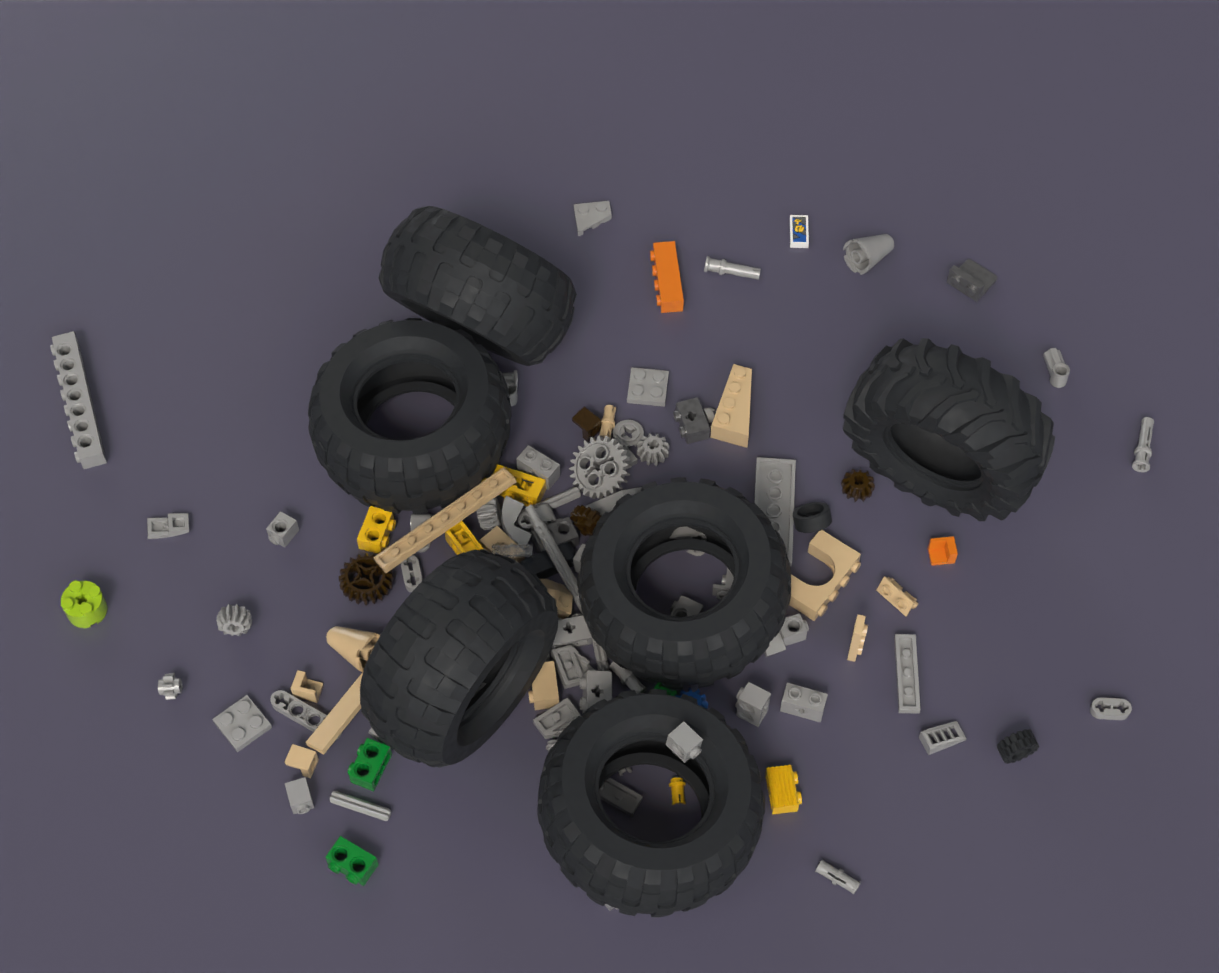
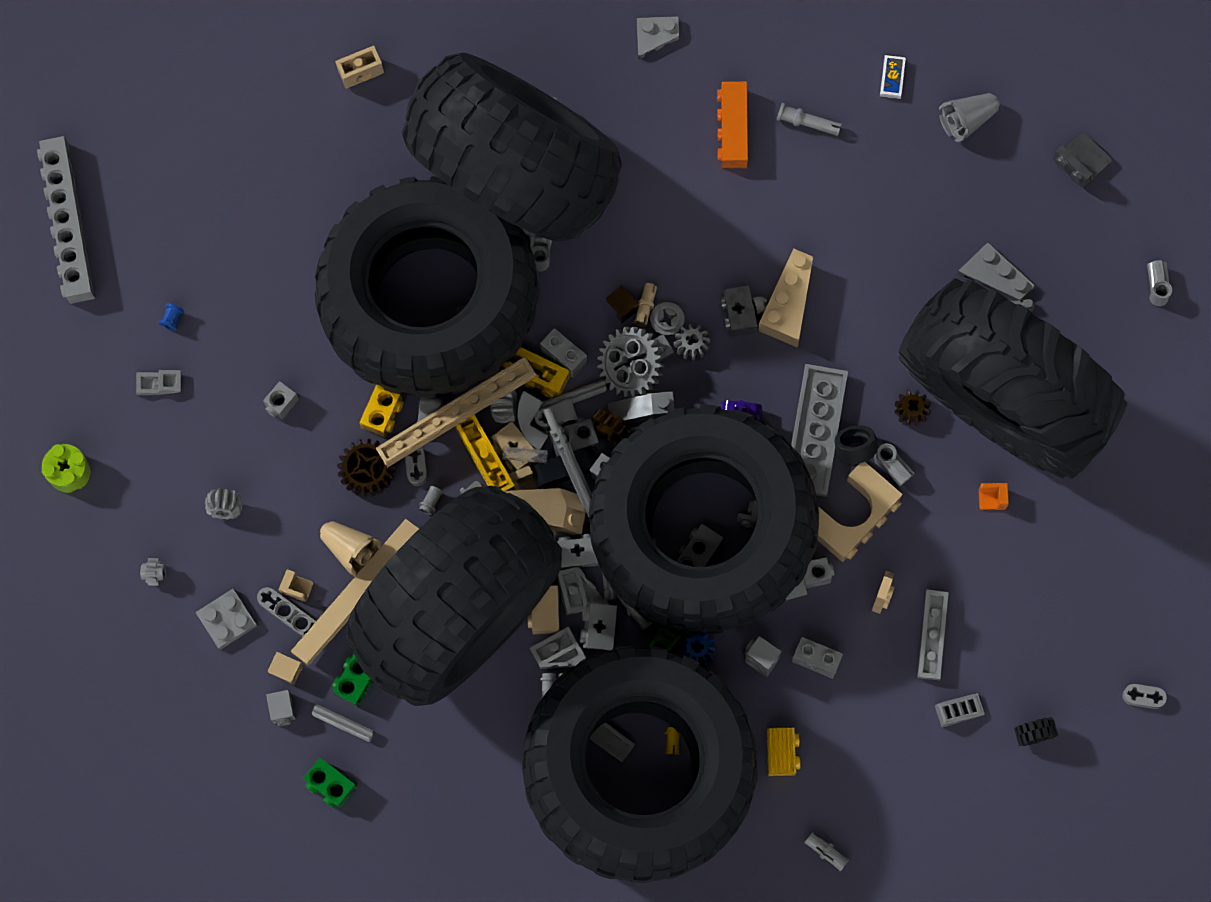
camera: 10 degrees right, 15 degrees up
(177, 469) = (171, 316): none -> blue bush
(335, 258) = (359, 67): none -> tan brick
(648, 386) = (695, 262): light grey plate -> none
(684, 742) = (678, 717): light grey brick -> none
(848, 532) = (895, 466): none -> light grey piece
(893, 593) = (941, 551): tan hinge -> none

